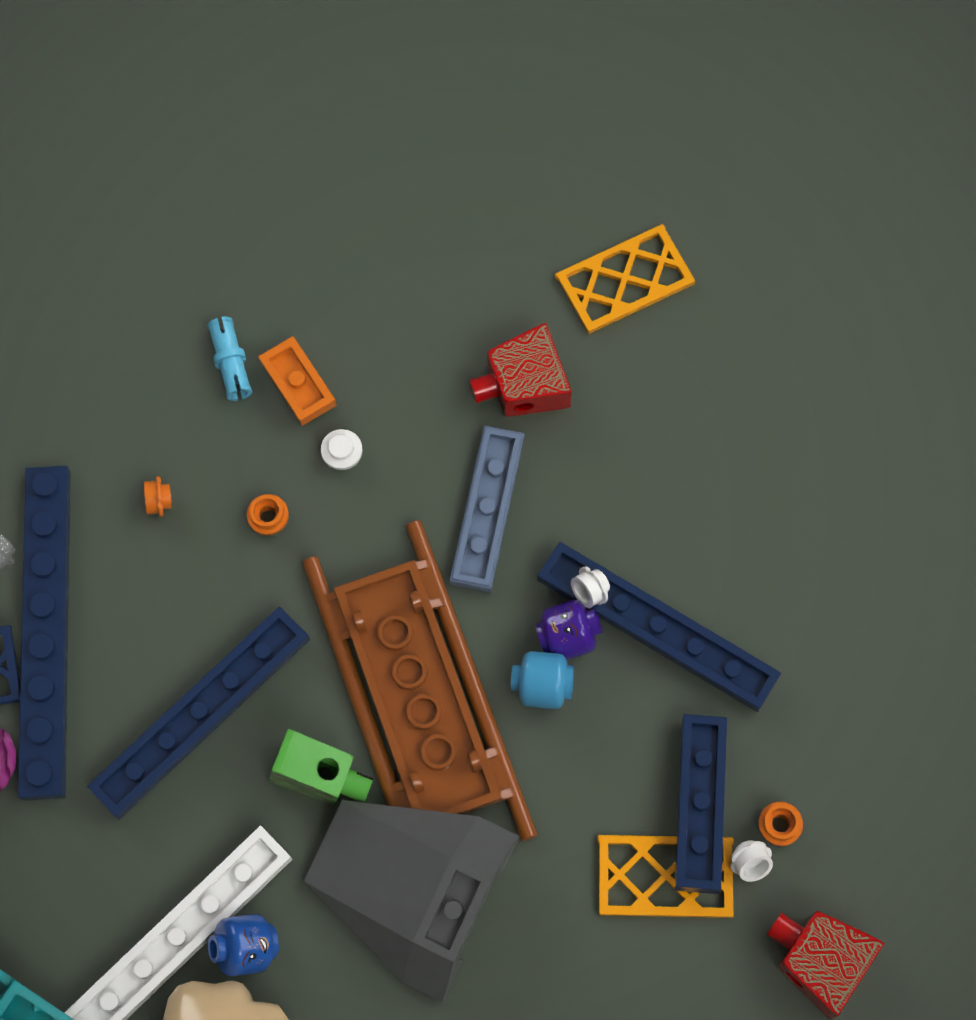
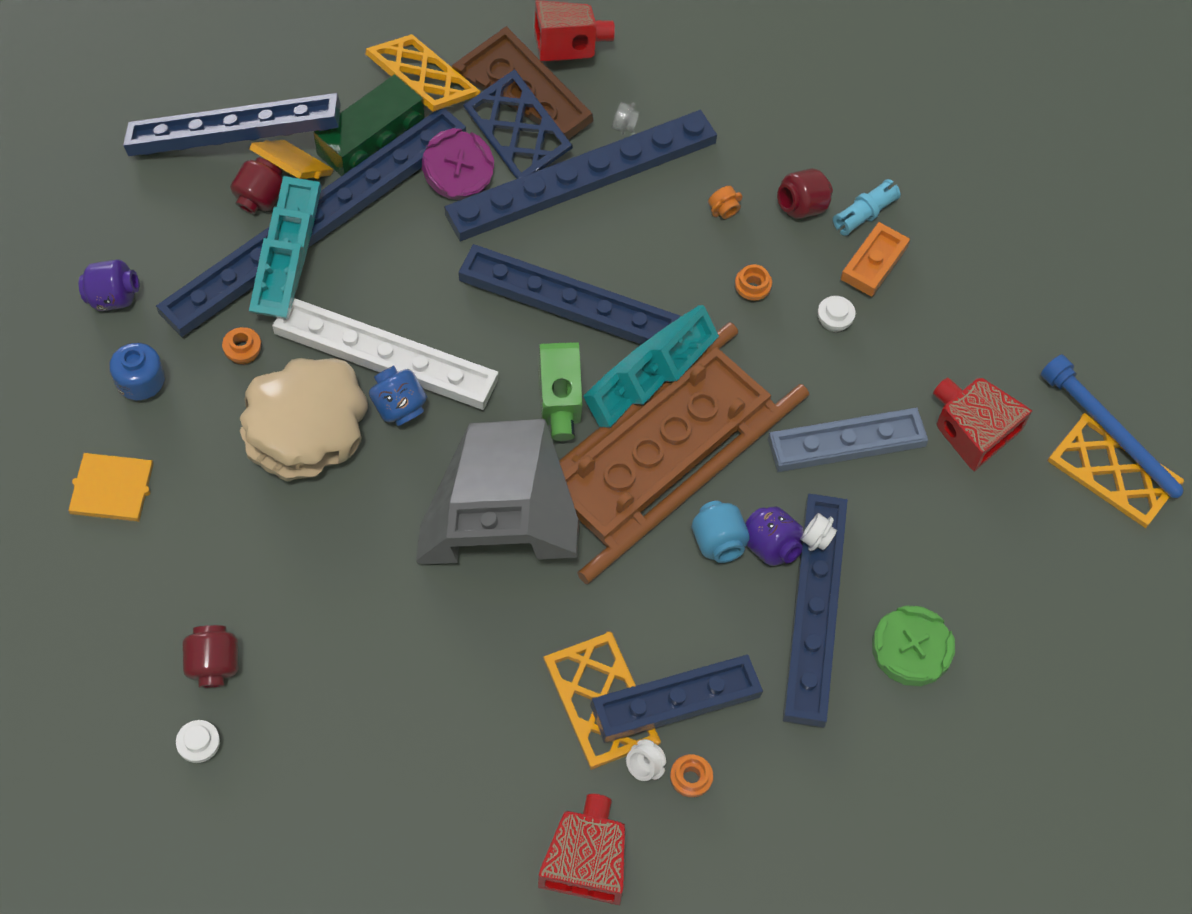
camera: 60 degrees right, 10 degrees down
(187, 412) = (804, 193): none -> dark red head
(324, 652) = (645, 369): none -> teal slope
(509, 273) = (1061, 373): none -> blue piece
(729, 554) = (913, 646): none -> bright green tile

